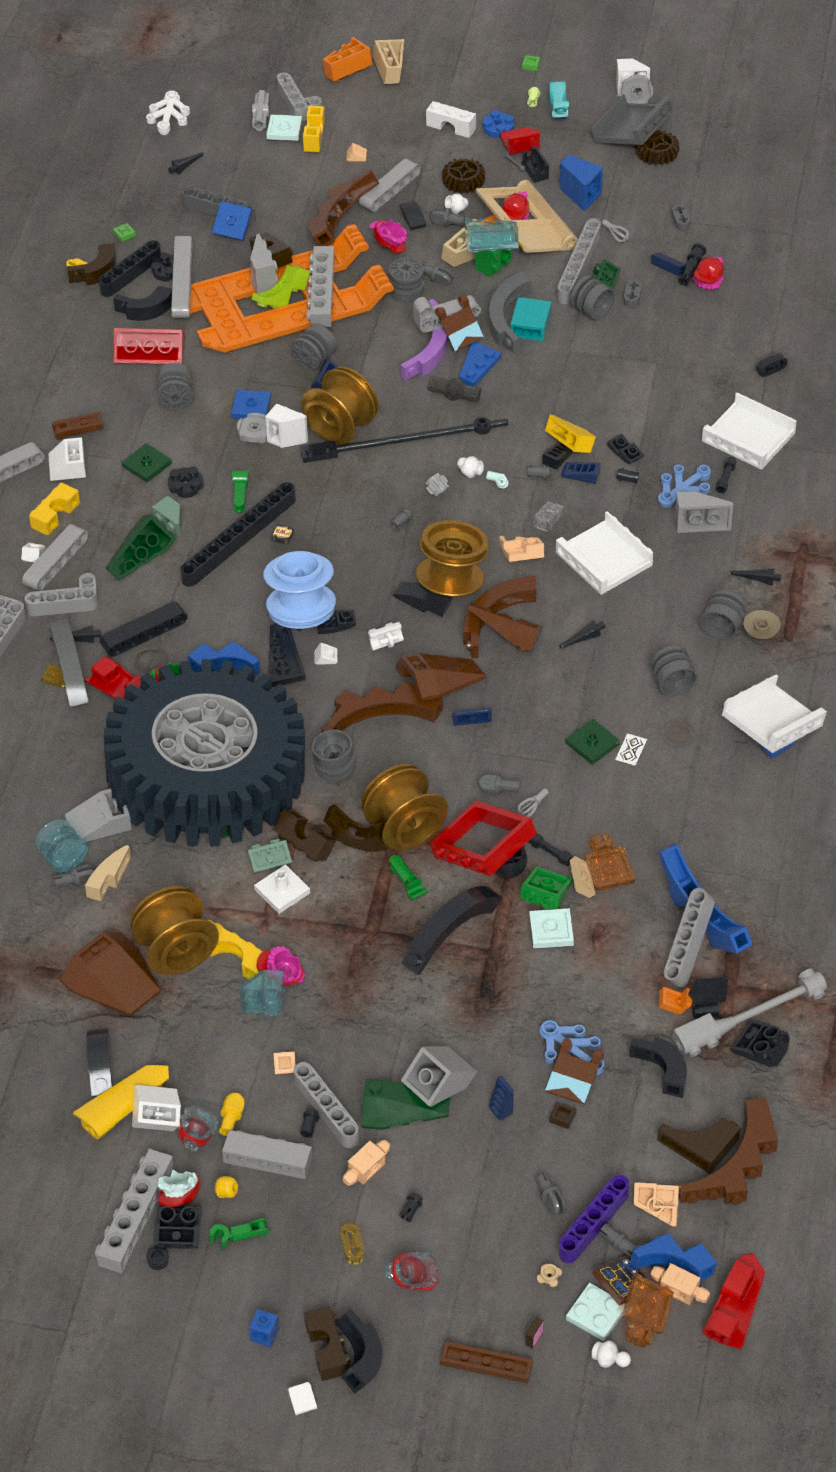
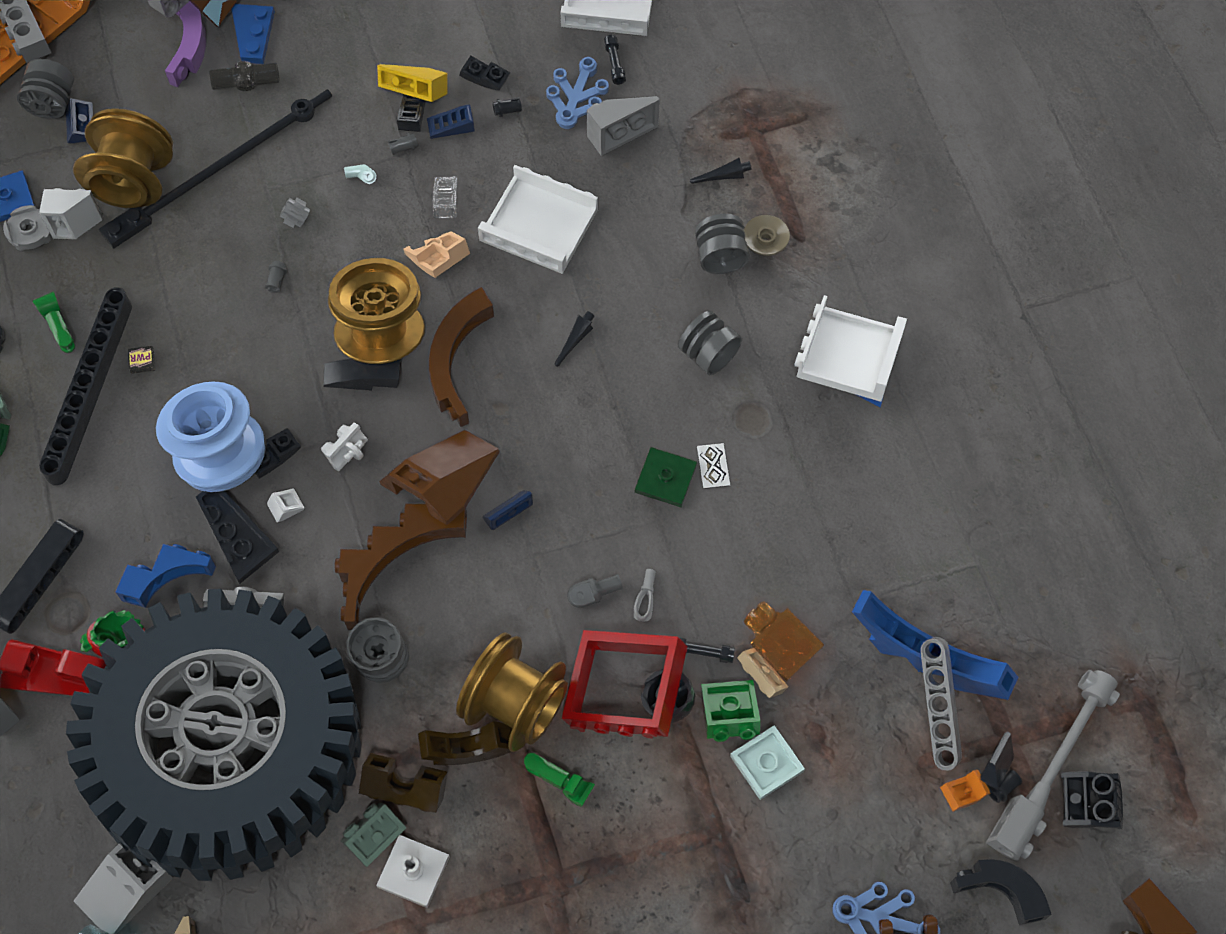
camera: 30 degrees left, 15 degrees up
(448, 918) = (653, 827): black arch -> none
(470, 466) = (320, 171): white animal -> none
(518, 632) = (503, 369): reddish brown wedge -> none

